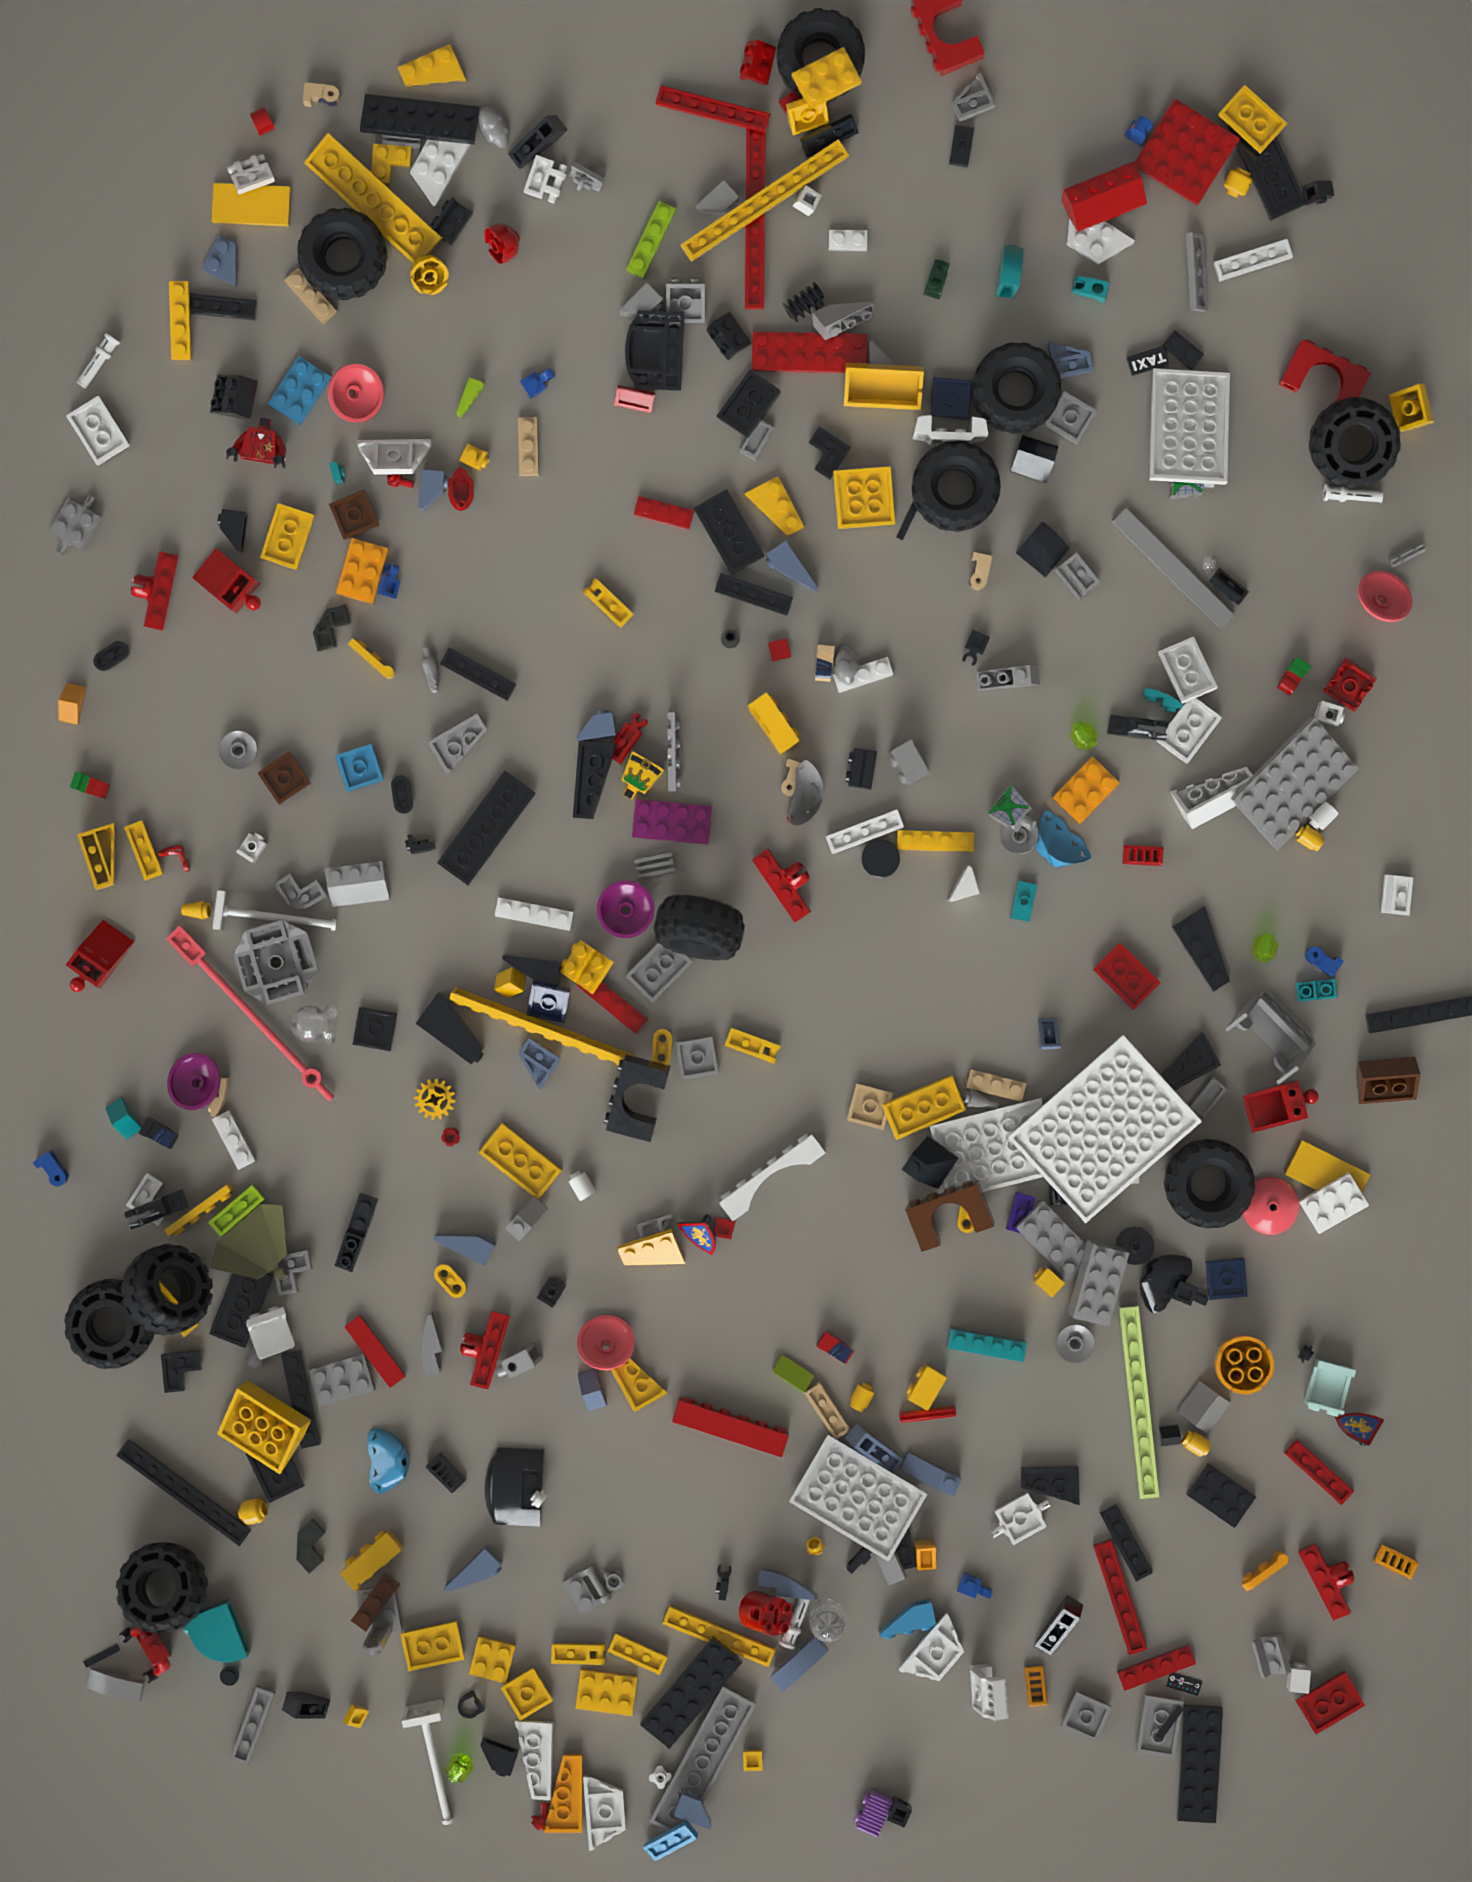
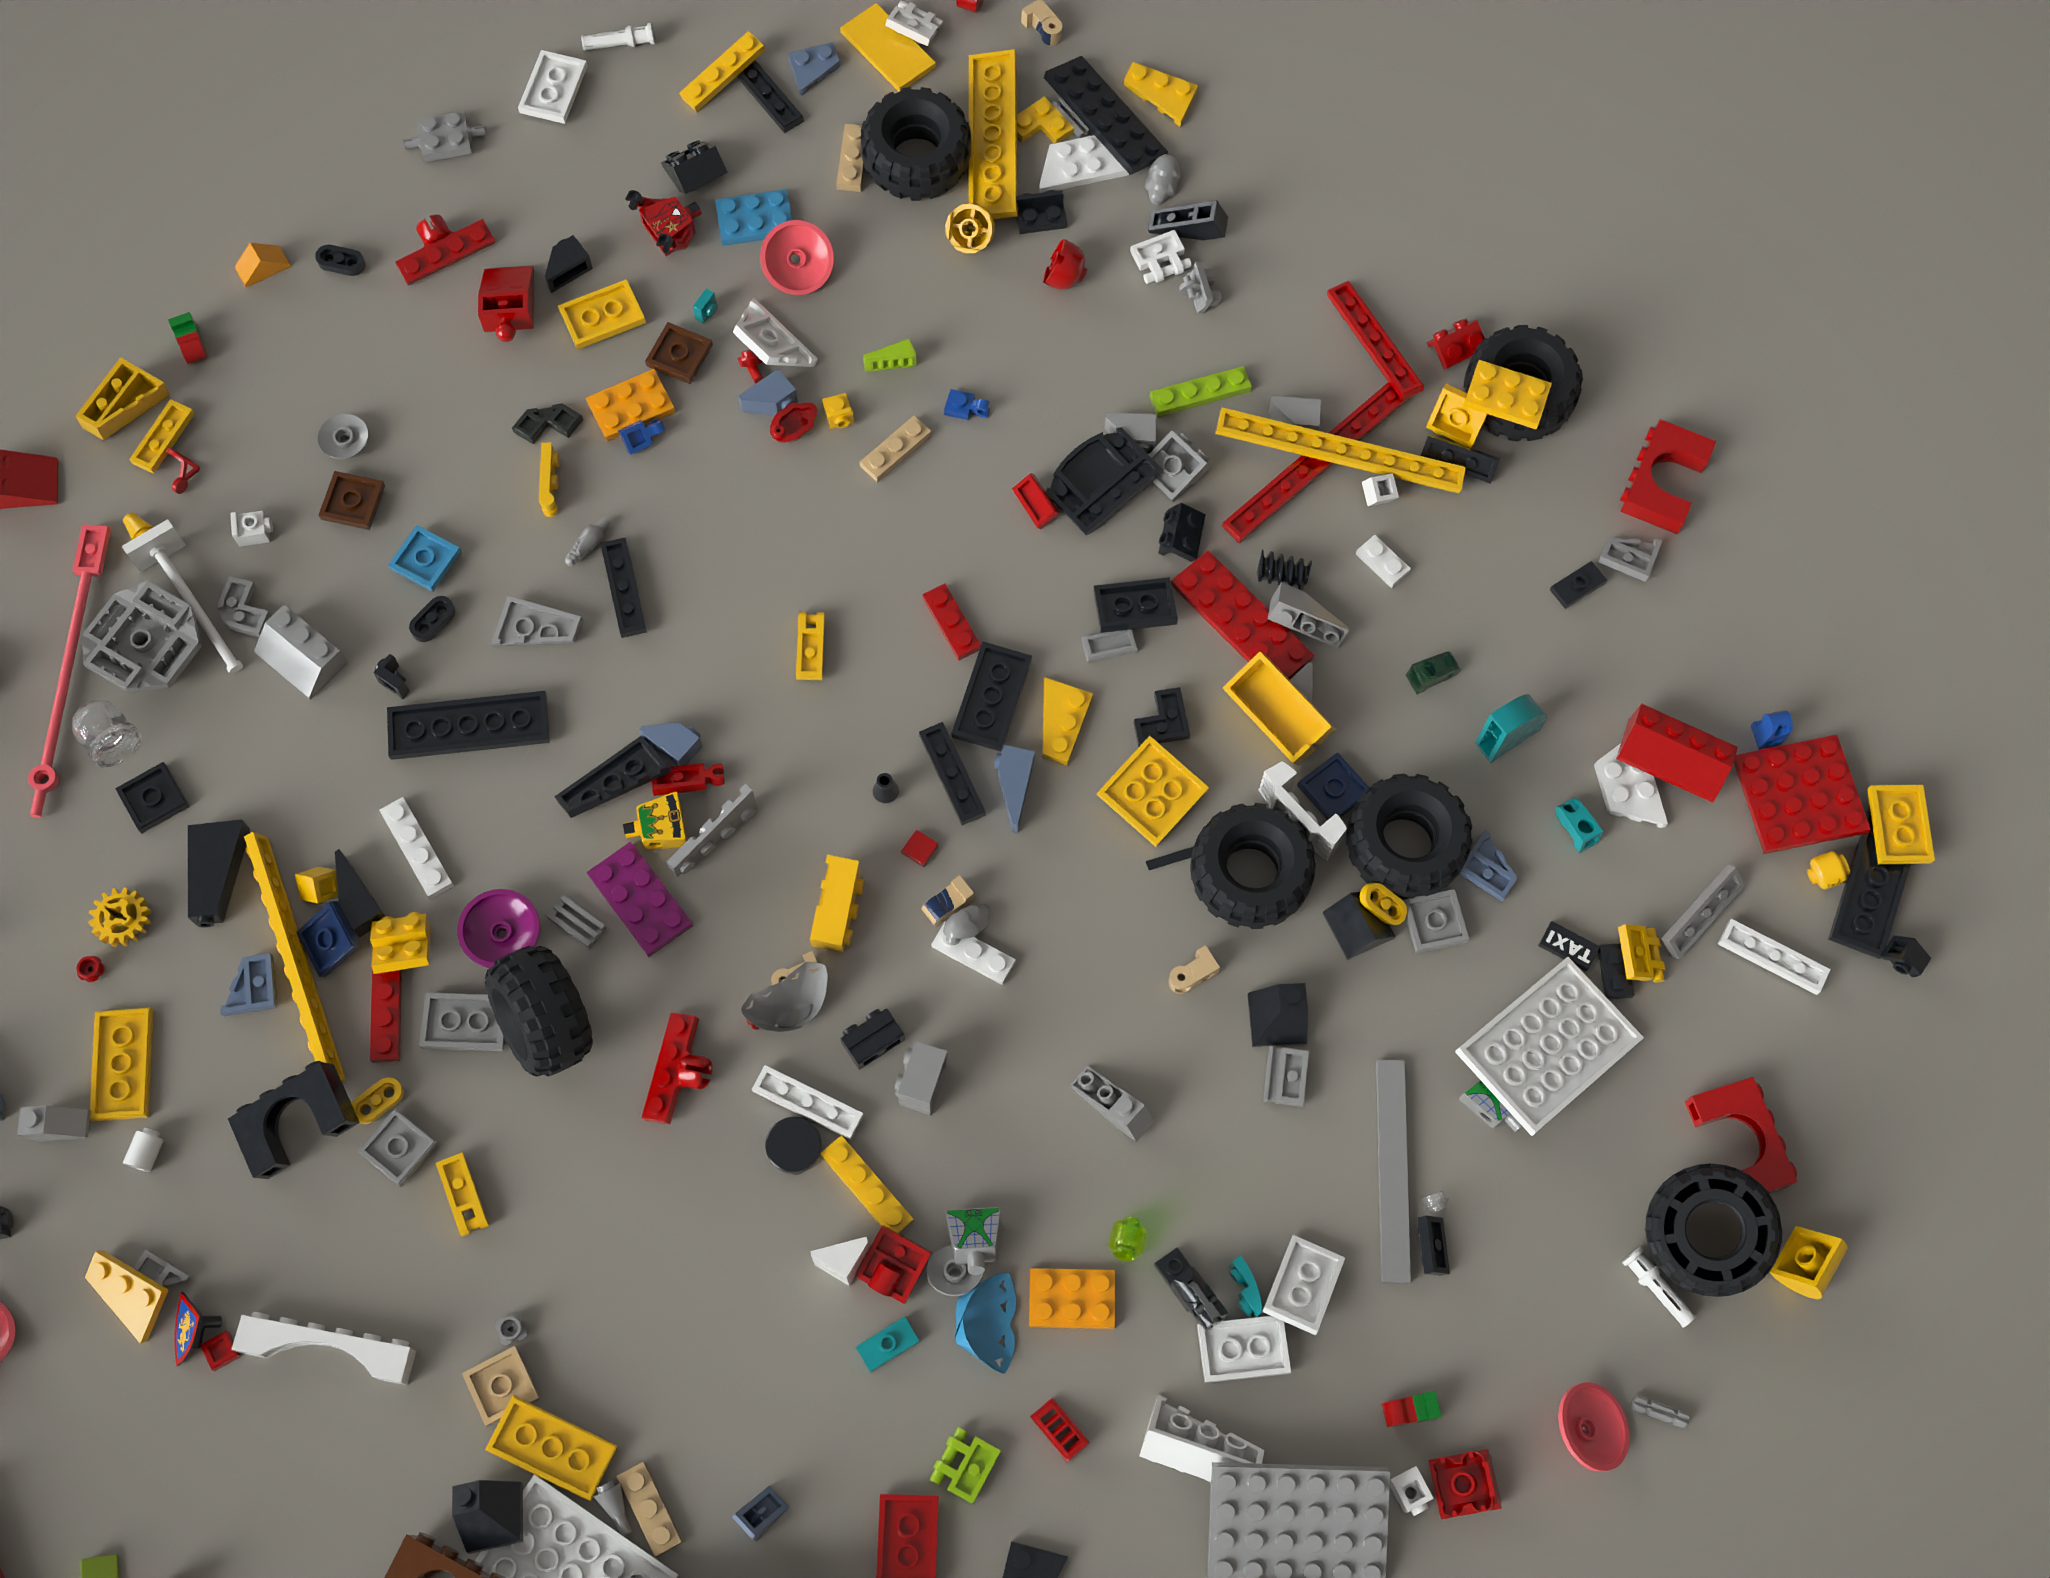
camera: 45 degrees right, 20 degrees down
(843, 1073) = (503, 1326): none -> light grey plate
(976, 644) = (1114, 1037): black plate -> none
(989, 863) = (893, 1264): none -> red plate
(1037, 436) = (1381, 902): none -> yellow plate
(1122, 914) = (973, 1469): none -> lime plate
(1188, 328) = (1641, 953): none -> yellow plate

